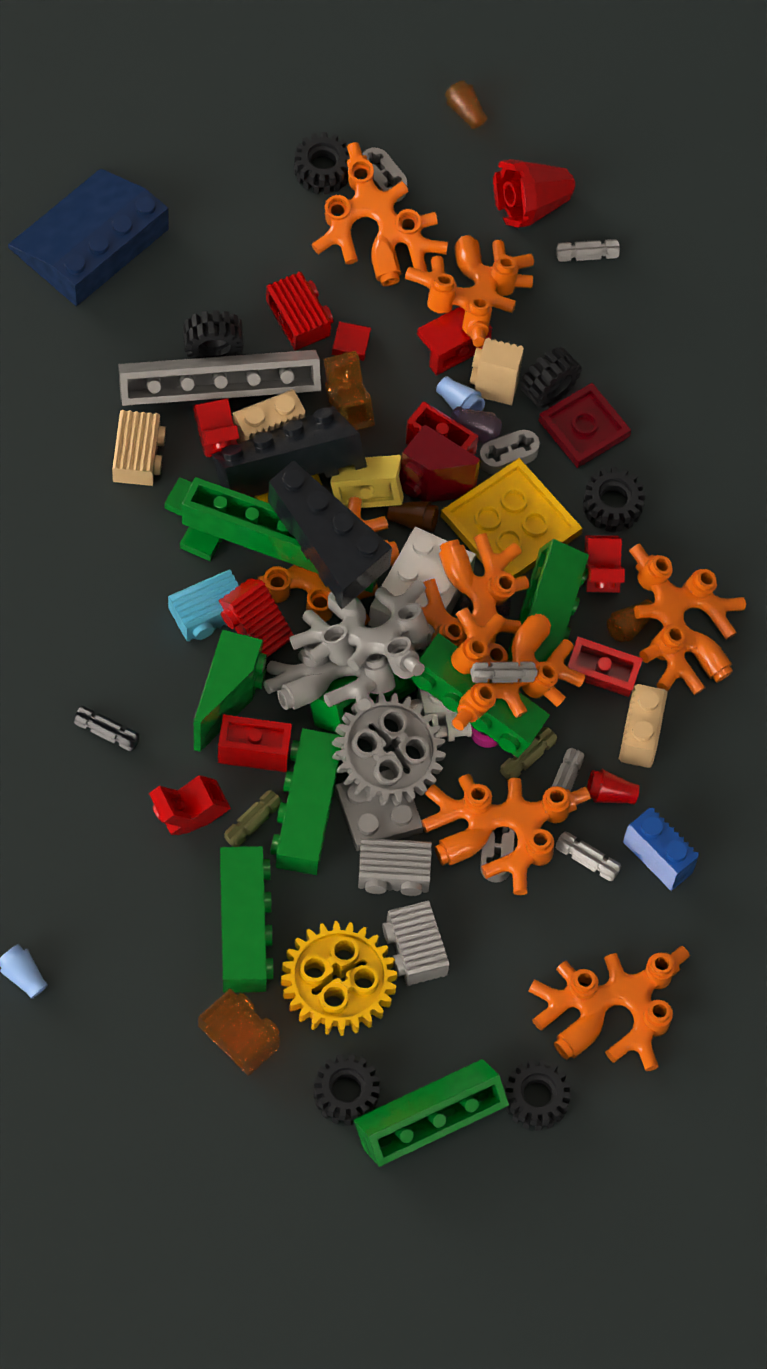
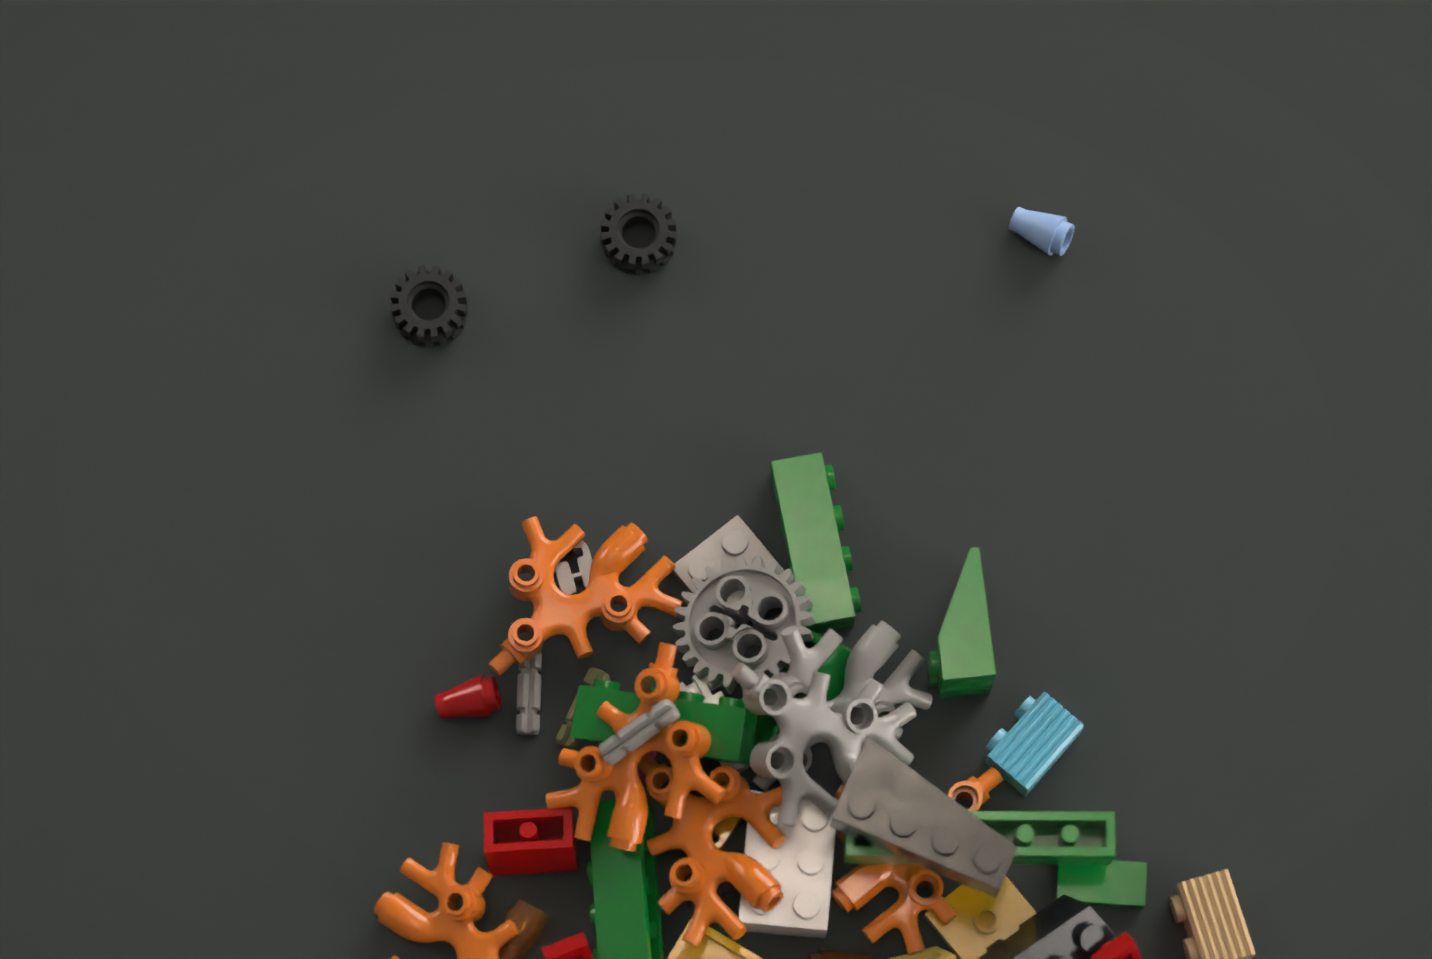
camera: 165 degrees right, 10 degrees up
(106, 728) = (1082, 548): axle -> none
(190, 806) = (946, 480): red brick -> none
(240, 1031) = (779, 251): clear orange brick -> none
(243, 919) = (828, 377): green brick -> none
(252, 818) = (869, 504): olive axle -> none
(254, 743) = (904, 583): red panel -> none
(256, 615) = (968, 732): red brick -> none
(357, 1001) = (727, 370): yellow gear -> none
(394, 866) = (684, 503): light grey brick -> none
(416, 943) = (625, 423): light grey brick -> none
(431, 1112) = (536, 234): green brick -> none
(588, 856) = (469, 608): light grey axle -> none
(594, 1000) = (377, 463): orange plant -> none
(643, 726) = (457, 788): tan brick -> none
(661, 848) = (386, 640): blue brick -> none

